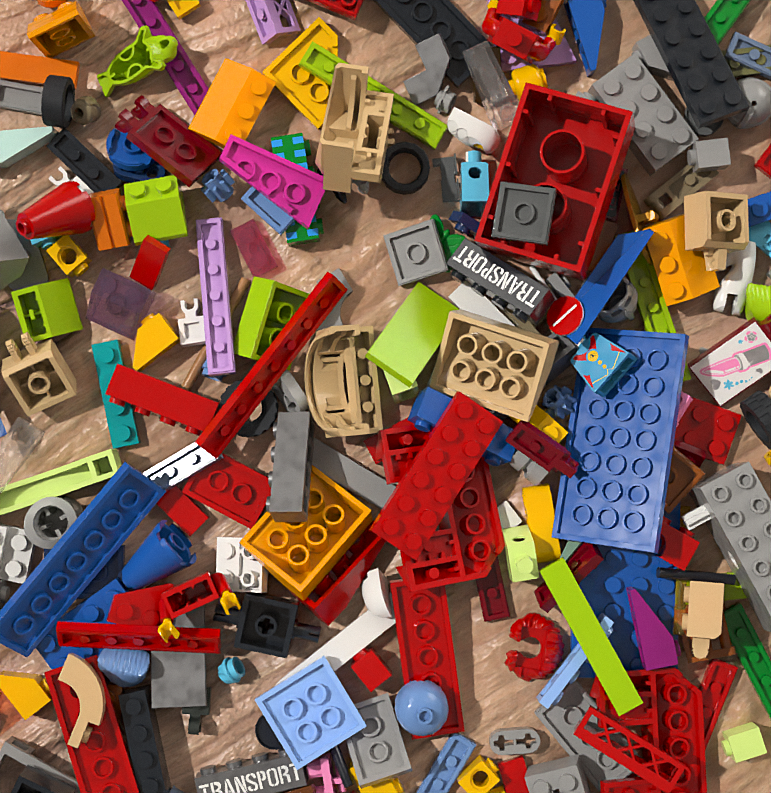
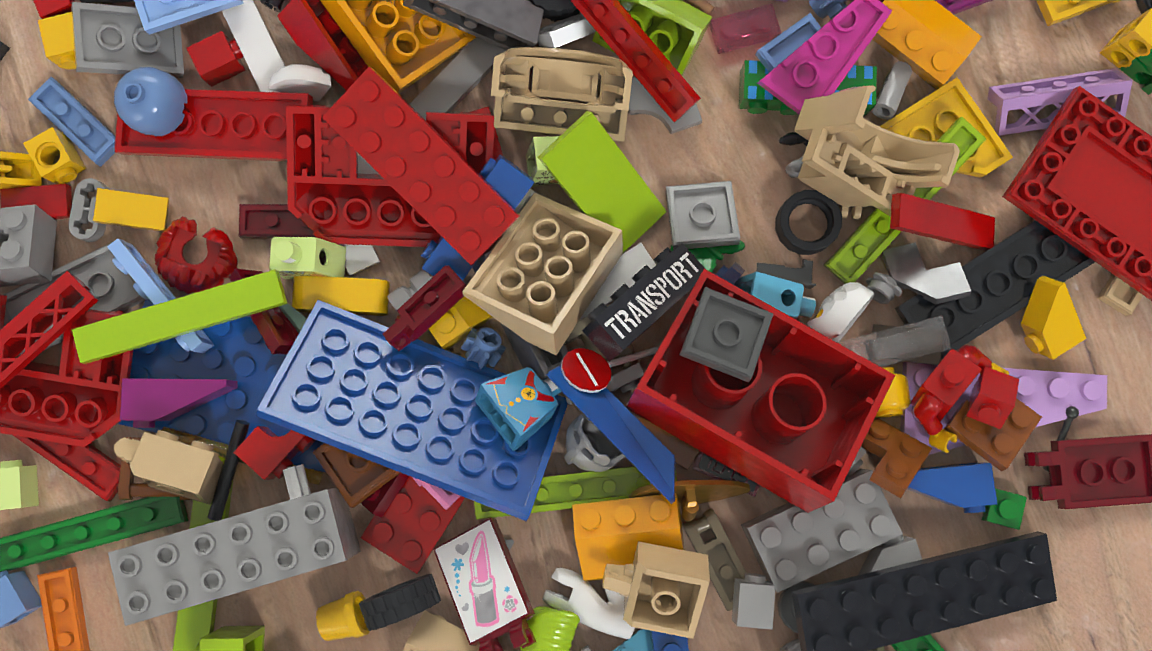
camera: 95 degrees right, 5 degrees down
(284, 121) = (892, 91): none -> light grey bar
(387, 64) = (942, 221): none -> red tile
(508, 705) = (131, 210): none -> yellow tile
(576, 64) = (900, 456): none -> dark orange plate

